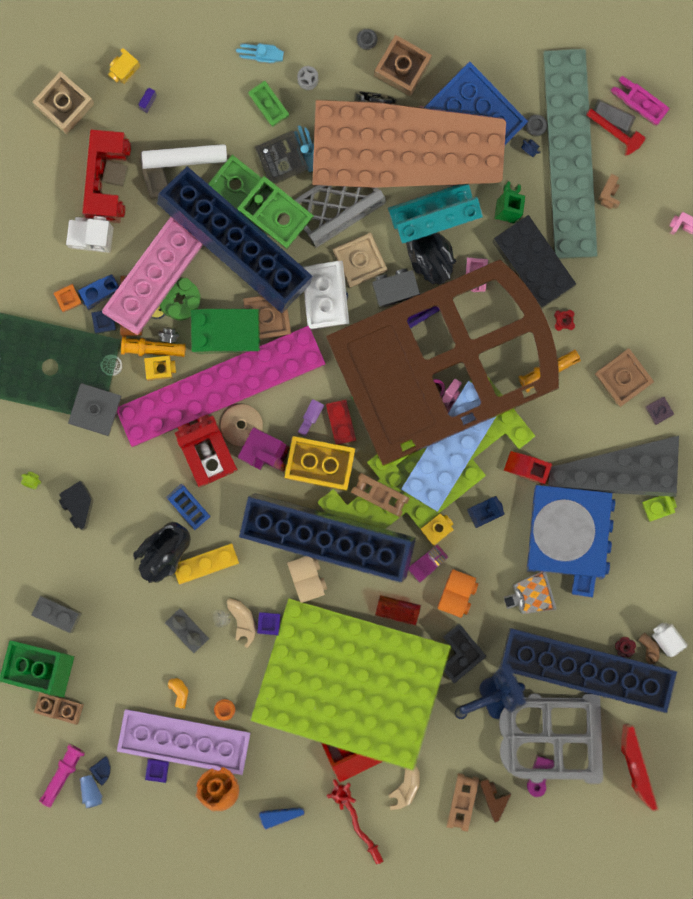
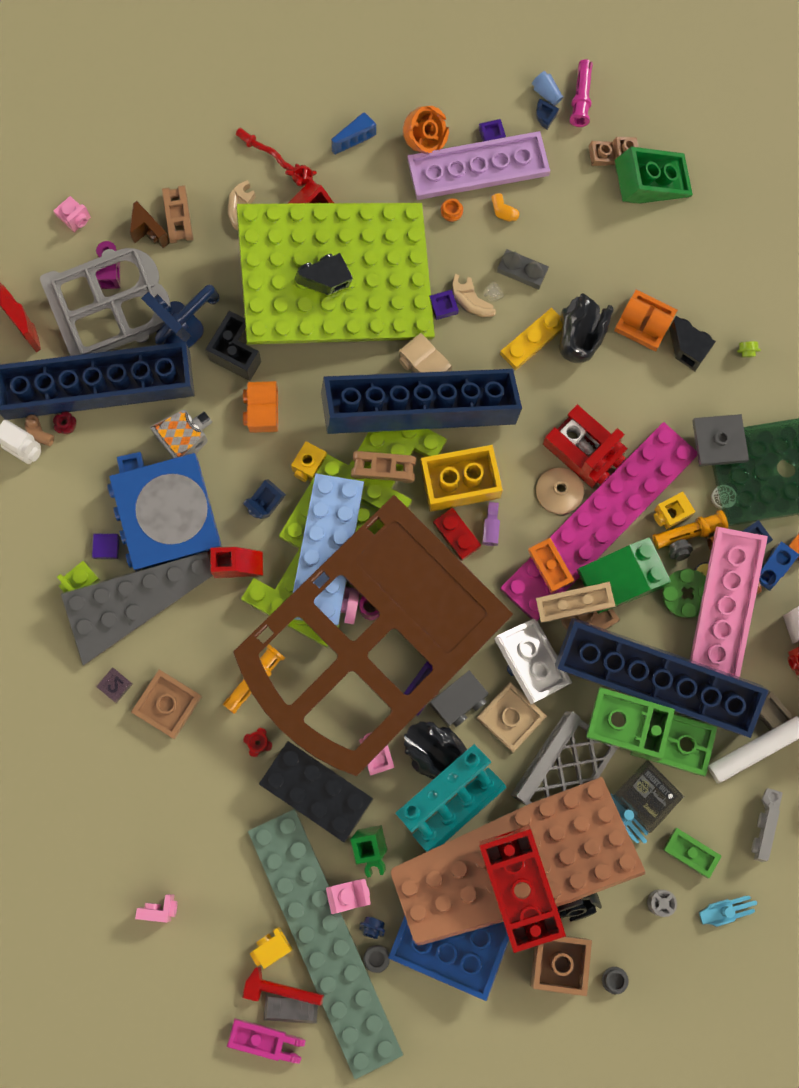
camera: 155 degrees right, 10 degrees down
(56, 614) = (659, 231): dark grey brick -> none
(104, 540) = (645, 320): none -> orange plate
(175, 493) = (574, 393): blue slope -> none
(201, 101) = (767, 822): none -> light grey hinge
(262, 449) = (525, 467): magenta plate -> none
(274, 323) = (575, 602): none -> tan plate
(279, 362) = (550, 565): none -> orange plate
(361, 675) = (325, 276): none -> black slope
(398, 610) = (315, 367): clear red plate -> none
(411, 145) = (513, 860): none -> red plate
(427, 563) = (305, 423): magenta leg -> none
(540, 177) = (348, 896): none -> bright pink bracket
(553, 839) = (72, 214): none -> bright pink bracket
(610, 189) = (261, 917): medium nougat bracket -> none
(611, 162) = (271, 949): none -> yellow brick
(627, 527) = (105, 546): none -> dark purple tile

